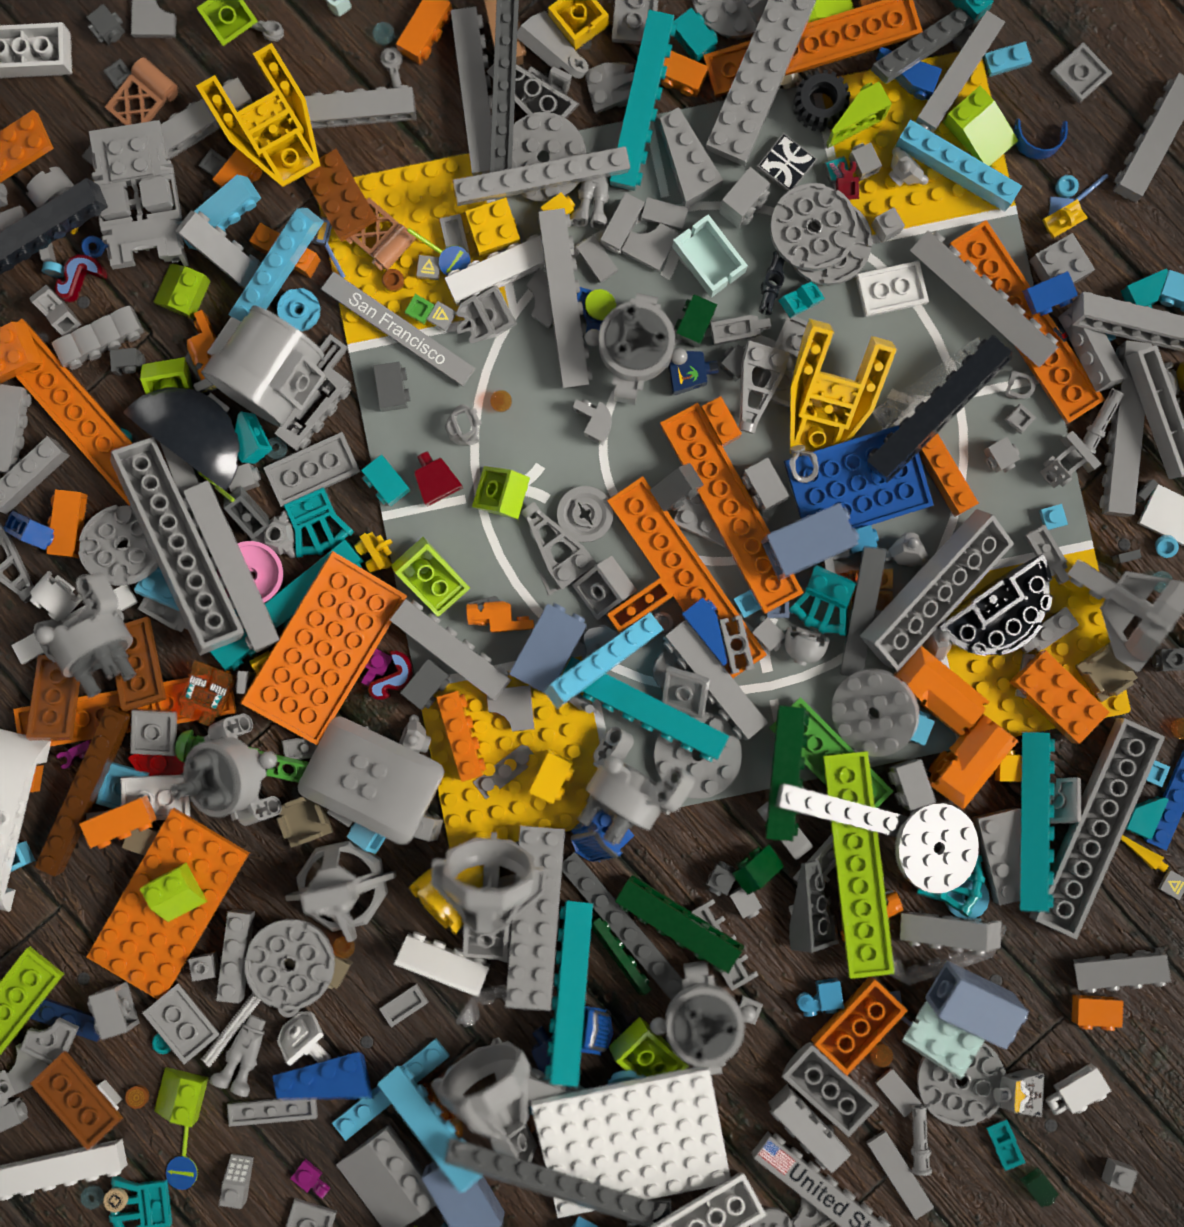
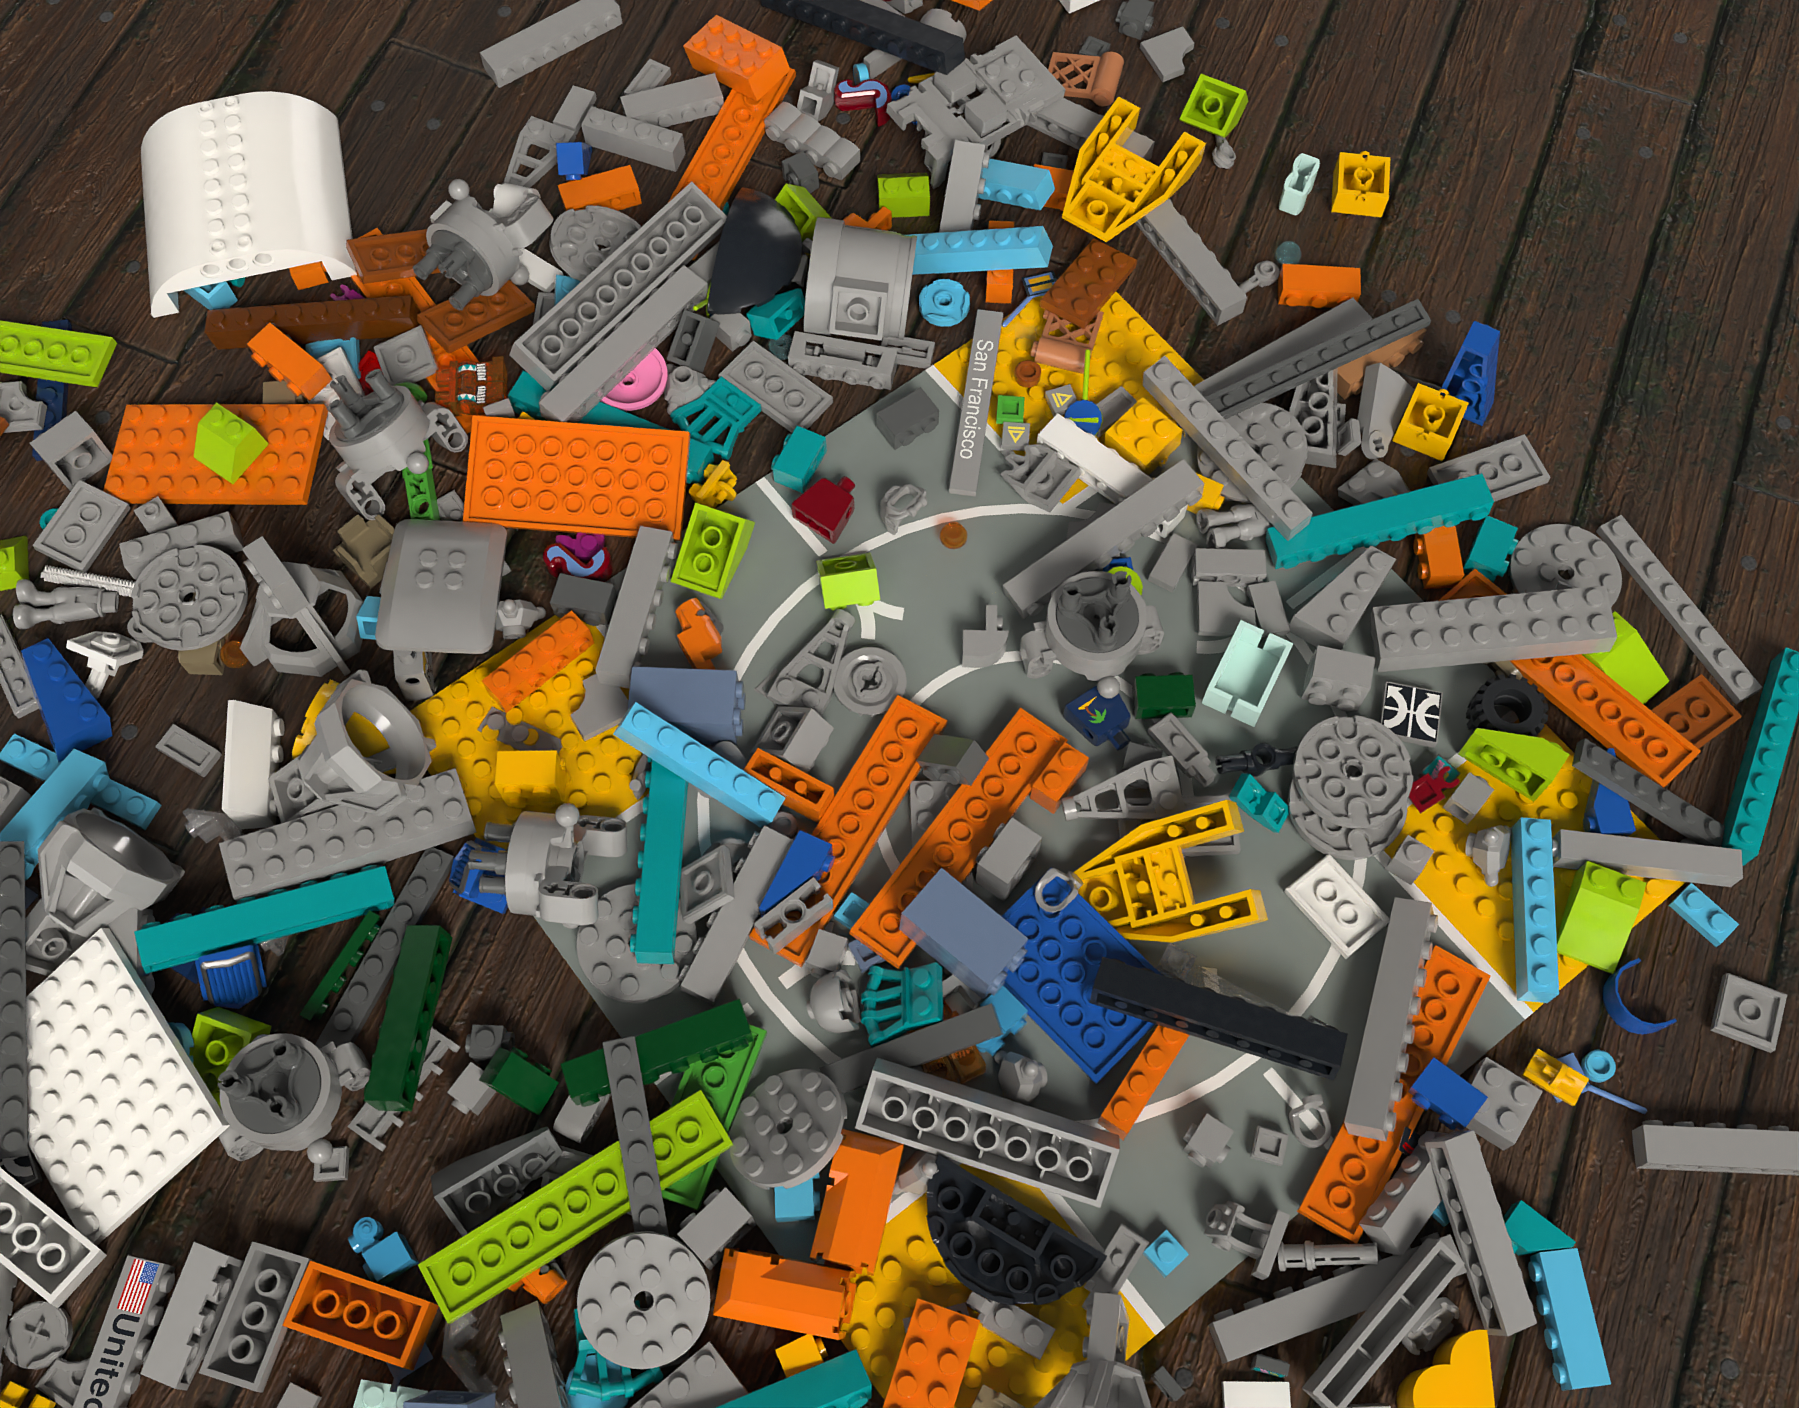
camera: 60 degrees right, 20 degrees down
(881, 1055) = (332, 1372): clear orange plate -> none

